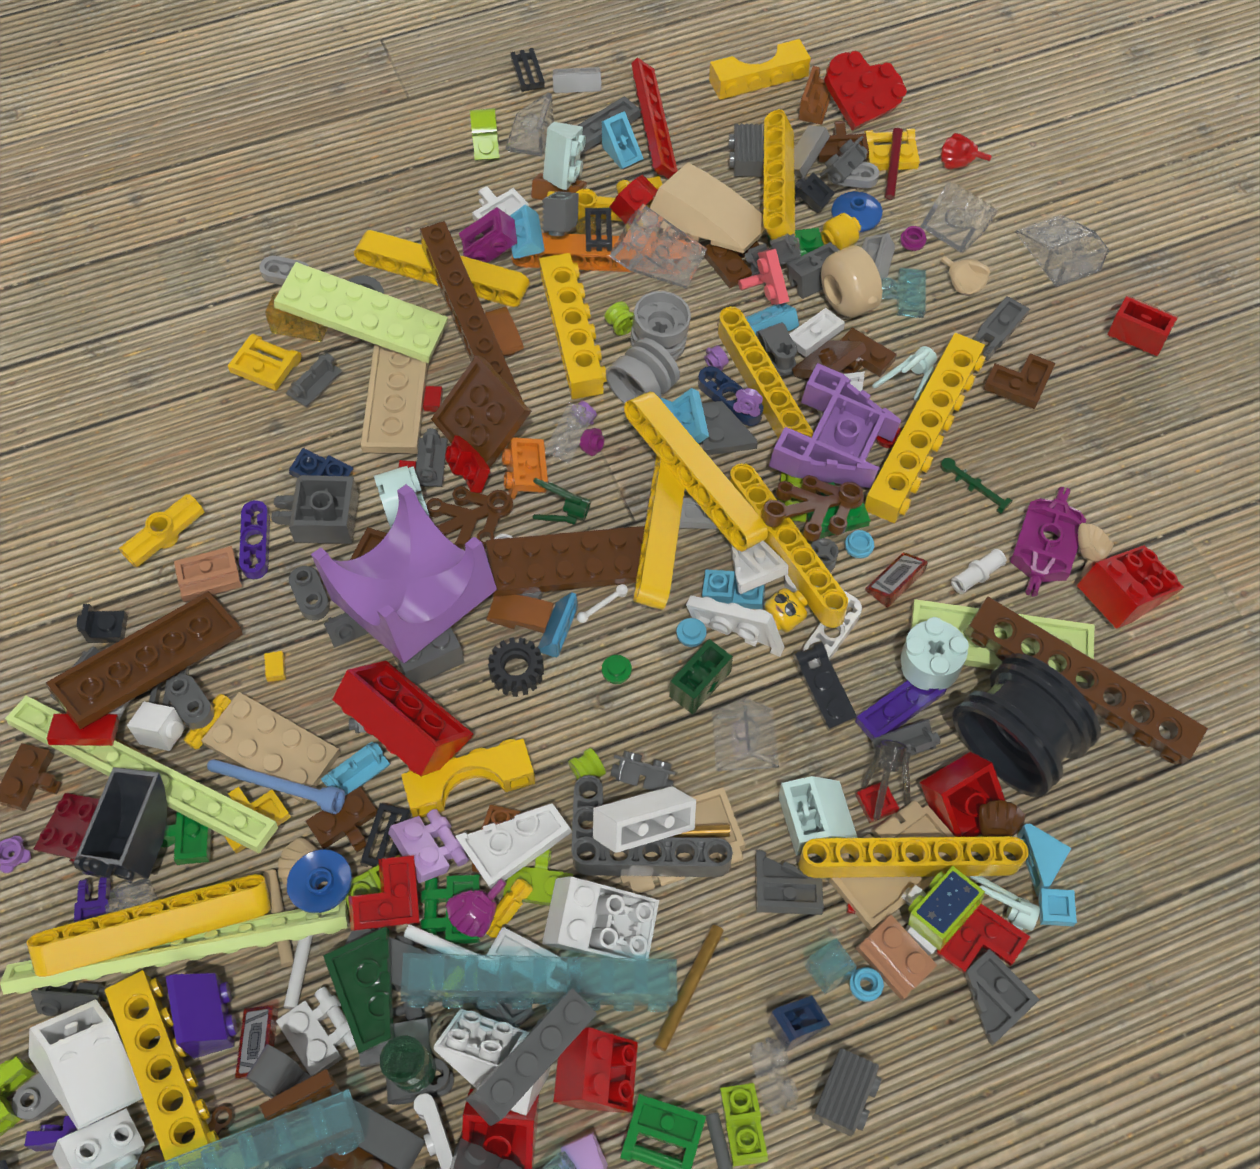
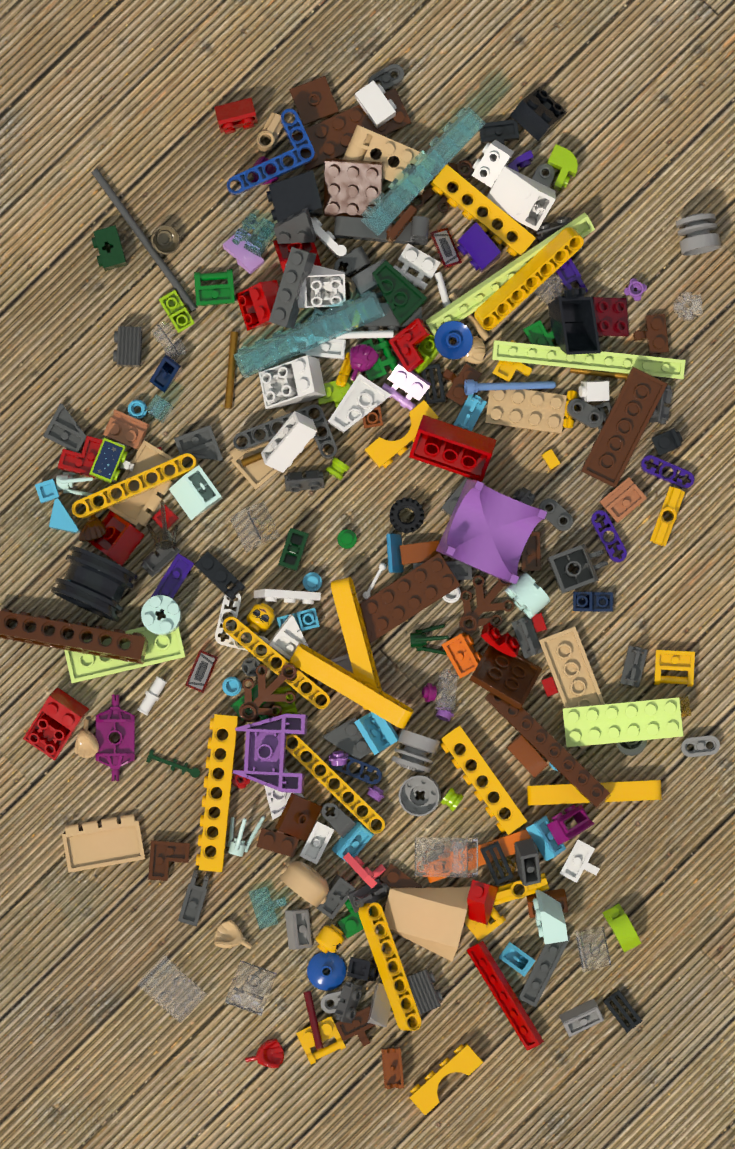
camera: 160 degrees right, 25 degrees up
(98, 733) = (641, 362): red tile -> none
(128, 600) = (656, 461): none -> dark purple beam
(407, 1064) = (355, 262): clear green wheel -> none
(863, 90) = (359, 1085): red plate -> none
(913, 238) = (277, 963): magenta plate -> none
(1103, 424) = (103, 845): none -> tan hinge
(1142, 325) = (96, 941): red slope -> none

